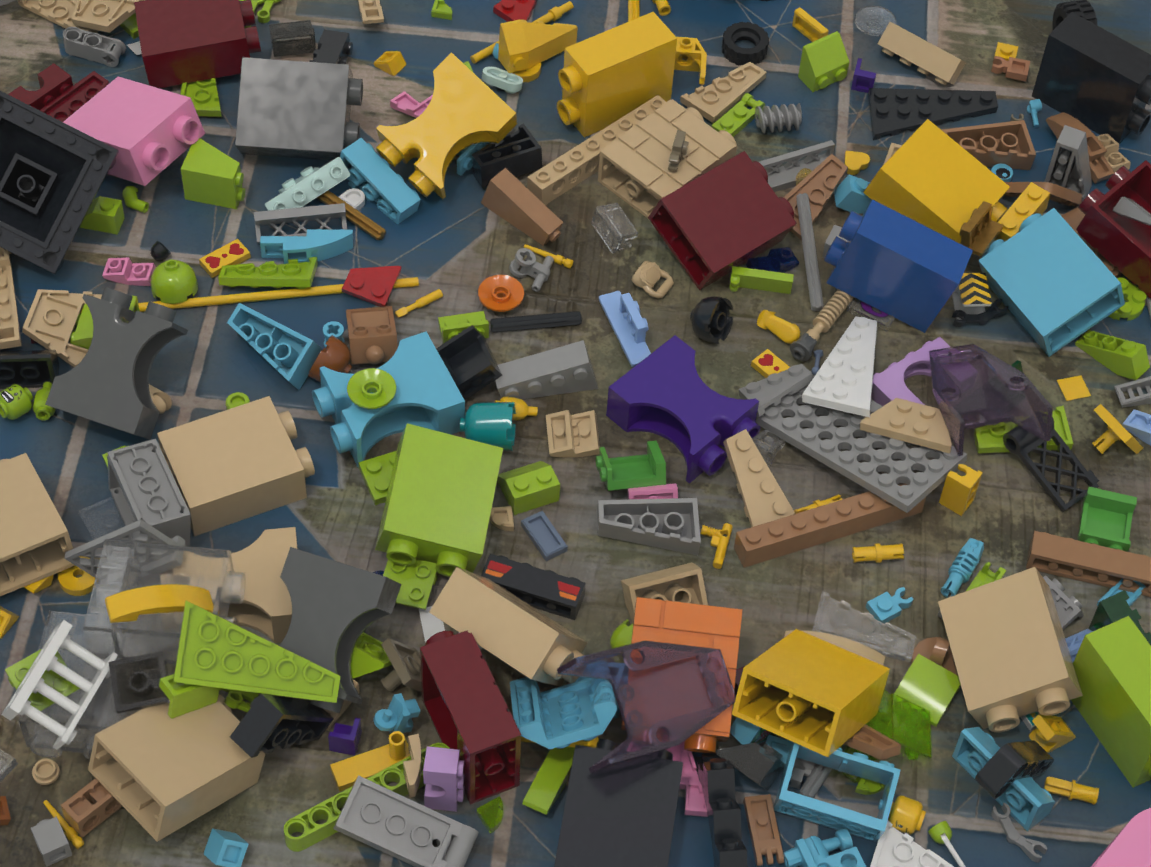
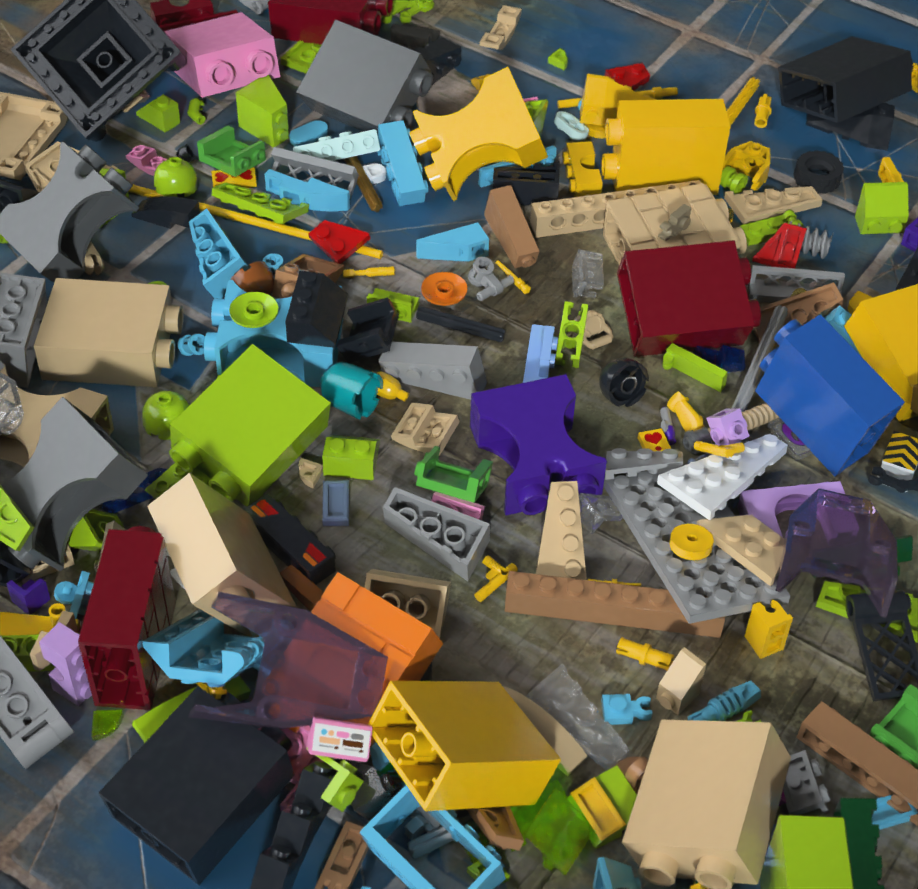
camera: 30 degrees right, 5 degrees down
(199, 315) = (167, 211): none -> black slope
(206, 234) = (228, 154): none -> bright green panel
(261, 181) = (308, 133): none -> medium azure tile
(317, 444) = (189, 349): none -> medium azure bush
(340, 521) = (161, 411): none -> lime cylinder
(425, 366) = (315, 310): none -> black slope
(483, 243) = (455, 245): none -> medium azure slope
(551, 135) = (580, 169): none -> yellow arch
(582, 626) = (301, 587): none -> dark orange piece
(648, 284) = (571, 326): none -> lime piece
(681, 81) = (733, 180): none -> lime wheel
(721, 733) = (339, 739): none -> slope
(744, 772) = (343, 786): none -> lime bracket
(765, 134) = (783, 247): none -> red wing
(768, 343) = (667, 425): none -> piece
(828, 326) = (728, 426): none -> lavender brick
(841, 349) = (722, 450): none -> yellow hose
(867, 442) = (691, 541): none -> yellow piece
(923, 563) = (681, 682): none -> tan slope
(926, 694) = (598, 809): none -> yellow tile

